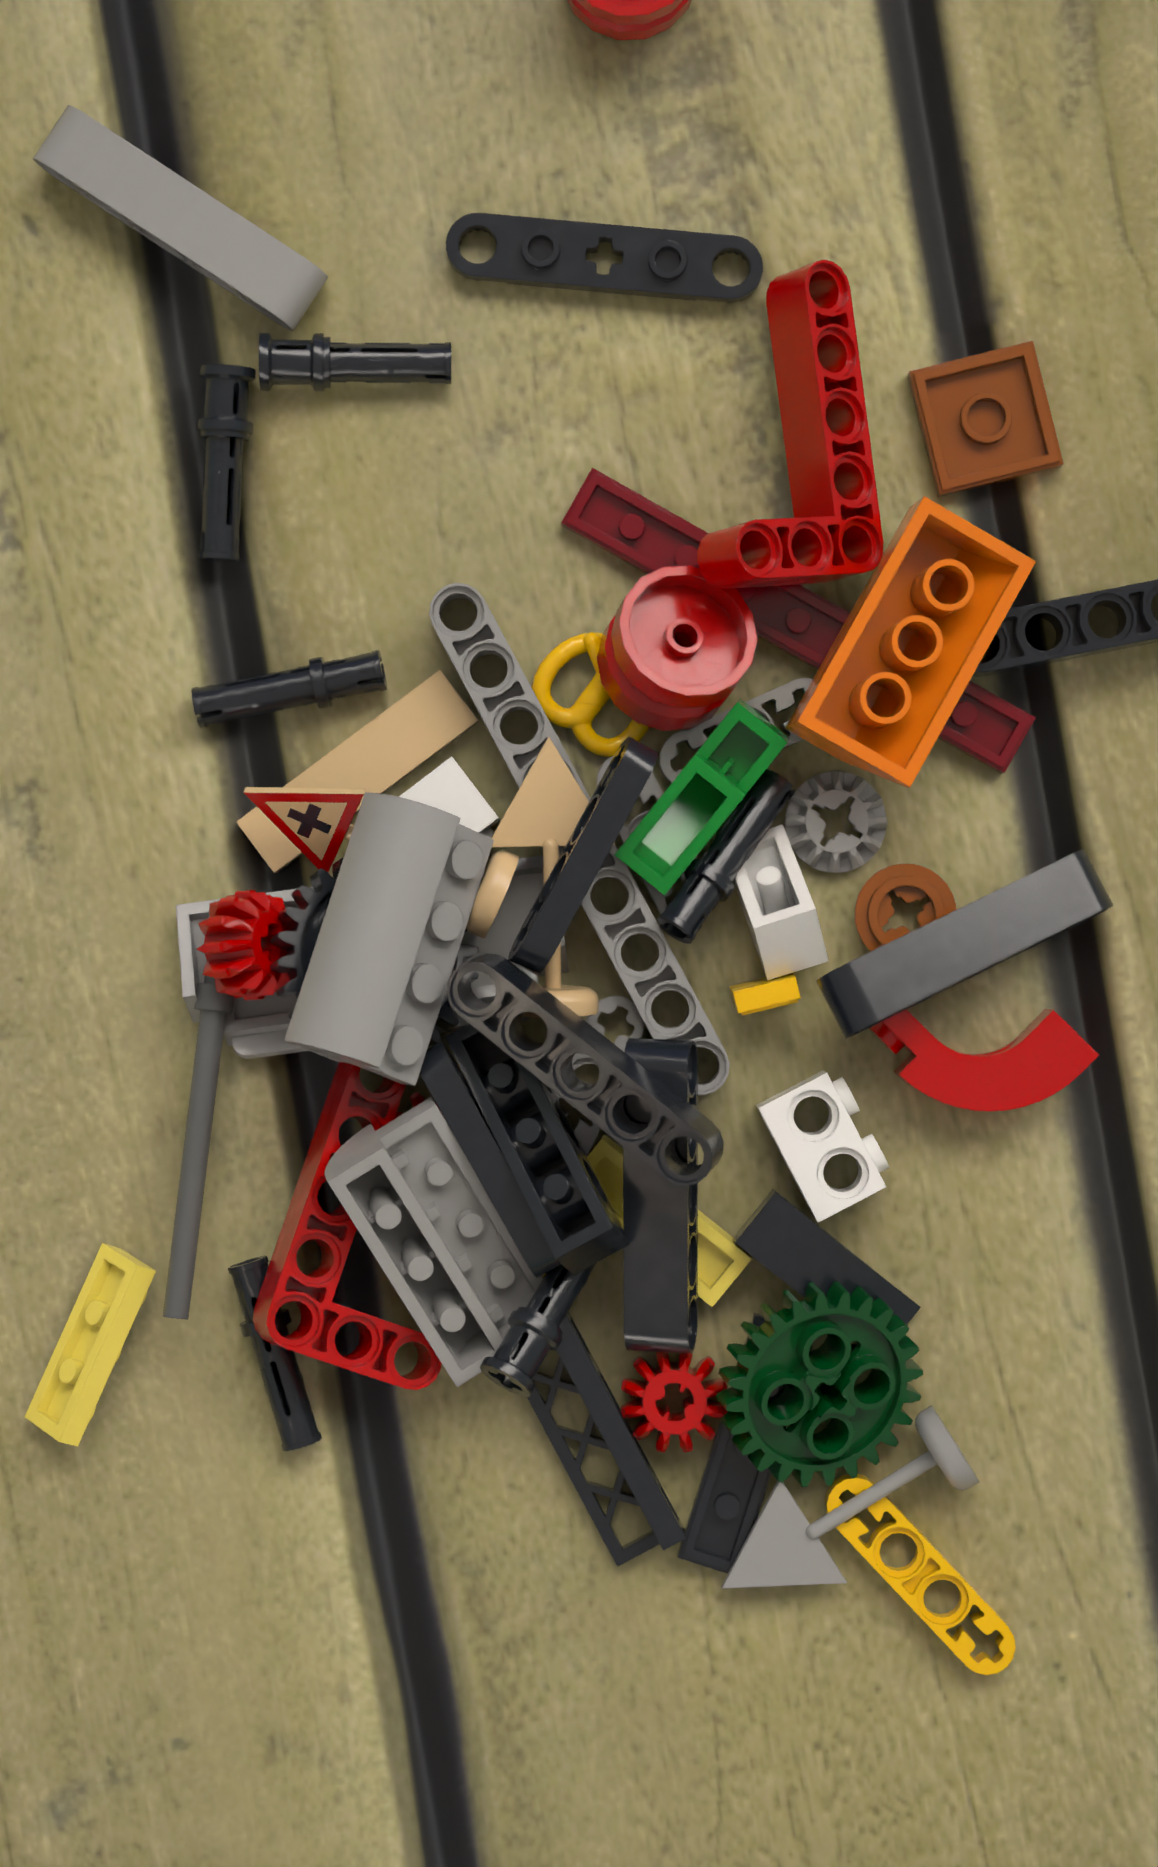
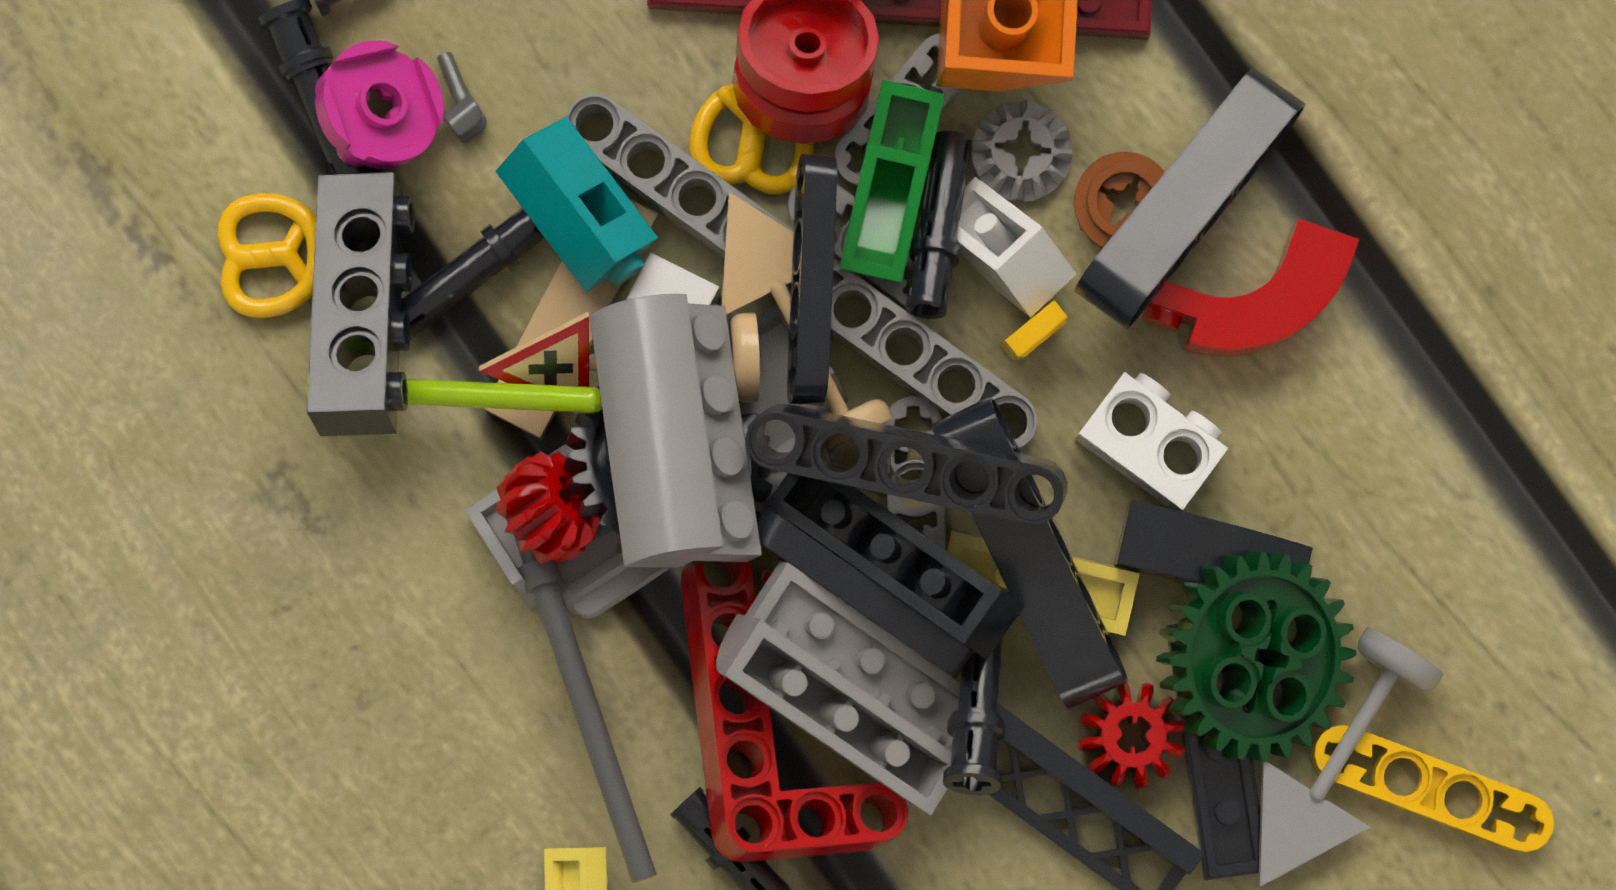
camera: 25 degrees left, 5 degrees down
(110, 739) = (502, 396): none -> lime piece
(111, 587) = (267, 254): none -> yellow piece
(194, 586) = (347, 213): none -> brick
(298, 478) = (354, 129): none -> dark pink plate
(348, 547) = (466, 116): none -> dark grey hand
(405, 682) = (577, 205): none -> teal brick

